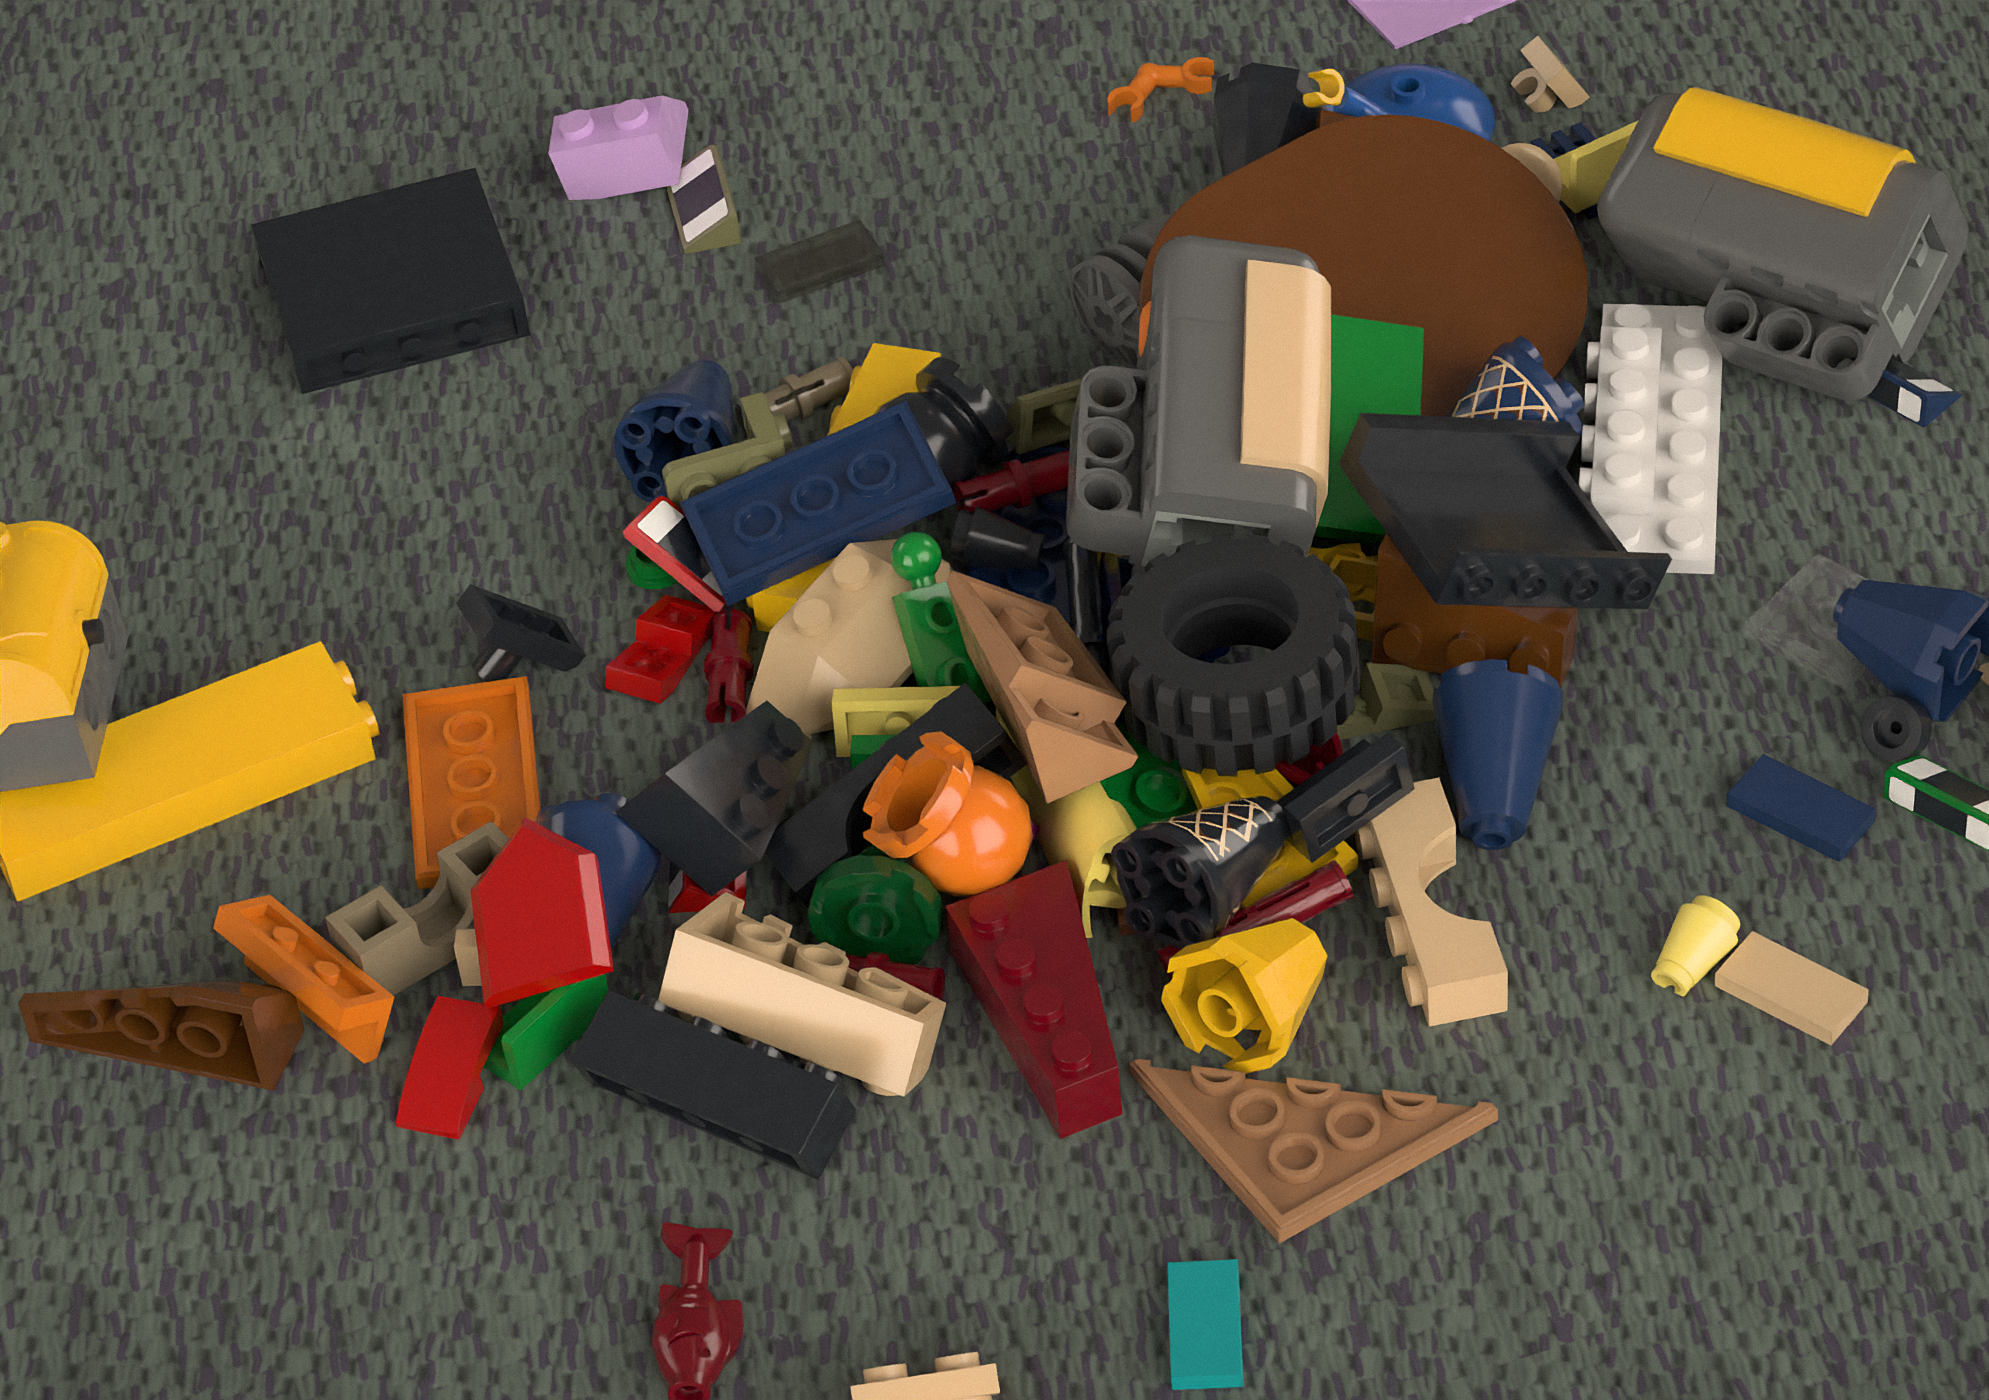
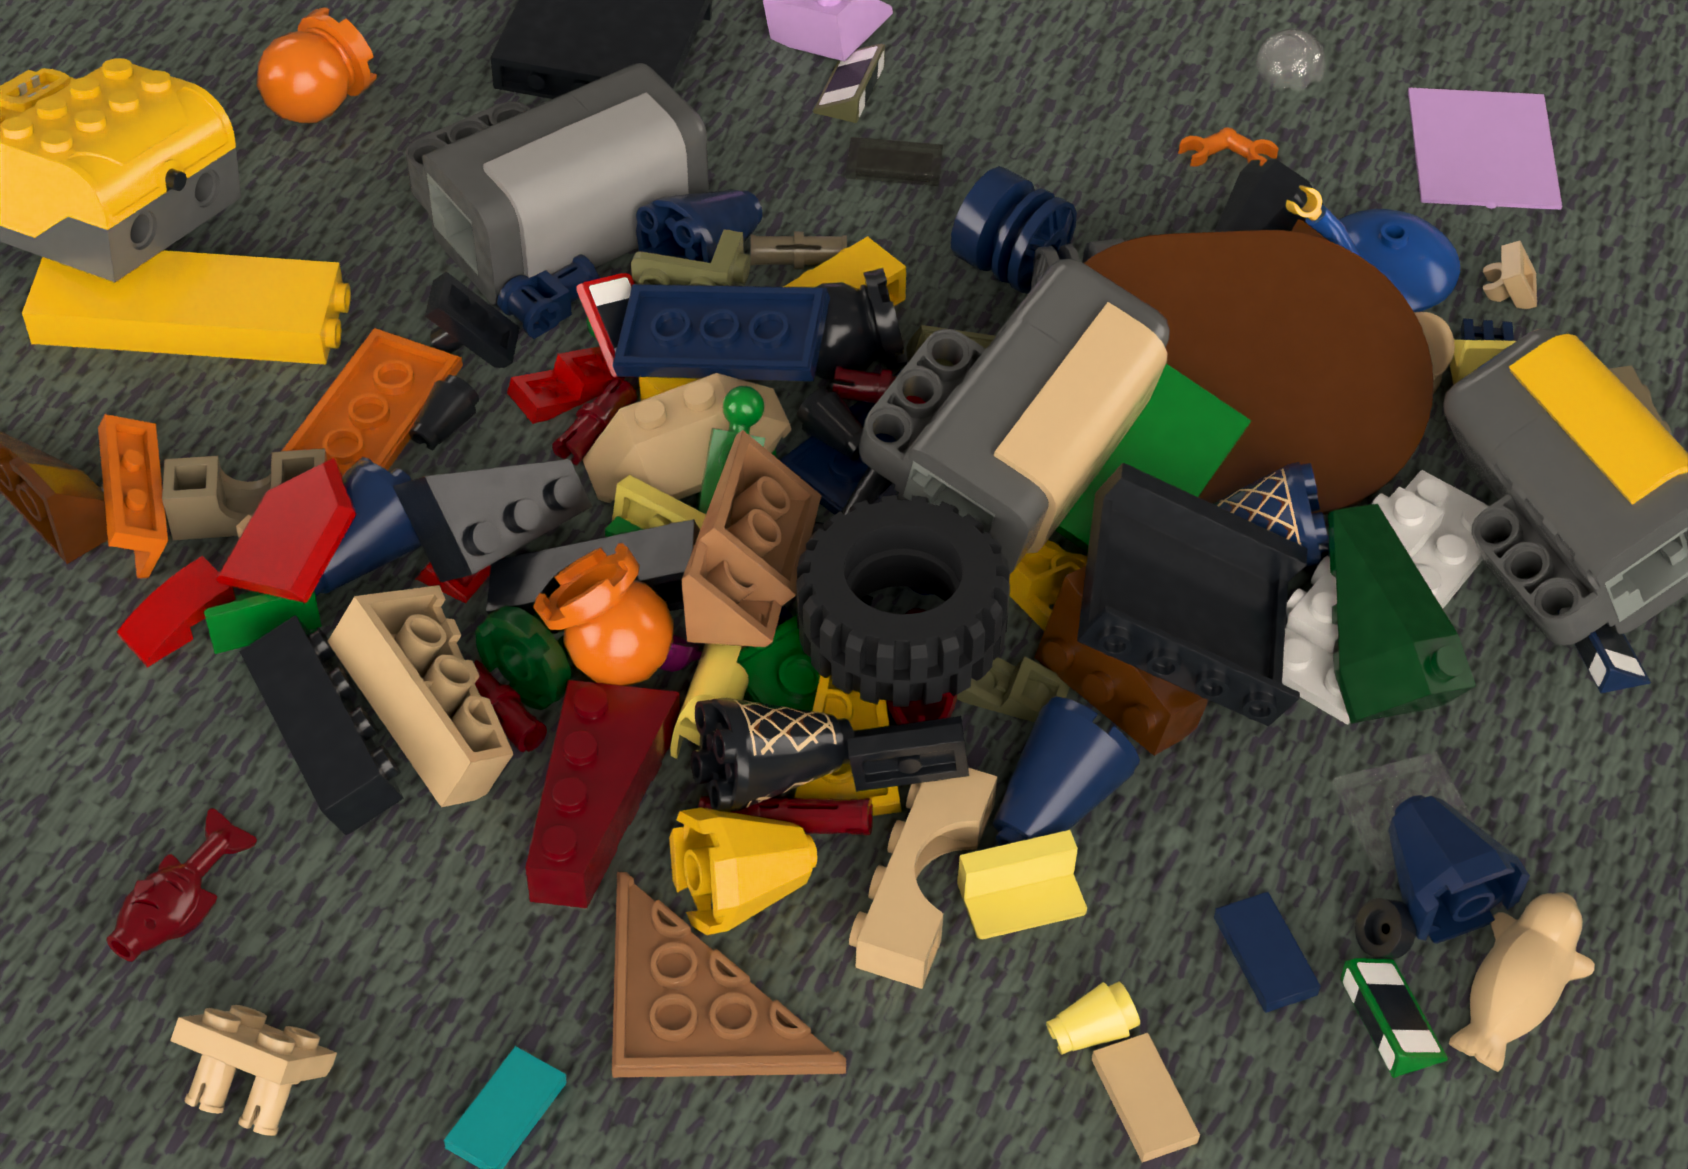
camera: 25 degrees right, 5 degrees up
(101, 458) = (314, 68): none -> orange tile
(497, 448) = (559, 179): none -> piece
(559, 735) = (444, 411): none -> black cone
(569, 572) = (546, 295): none -> dark blue connector
(1019, 263) = (1006, 223): none -> dark blue wheel
(1529, 868) = (1021, 885): none -> light yellow panel
(1713, 462) = (1392, 632): none -> dark green wedge

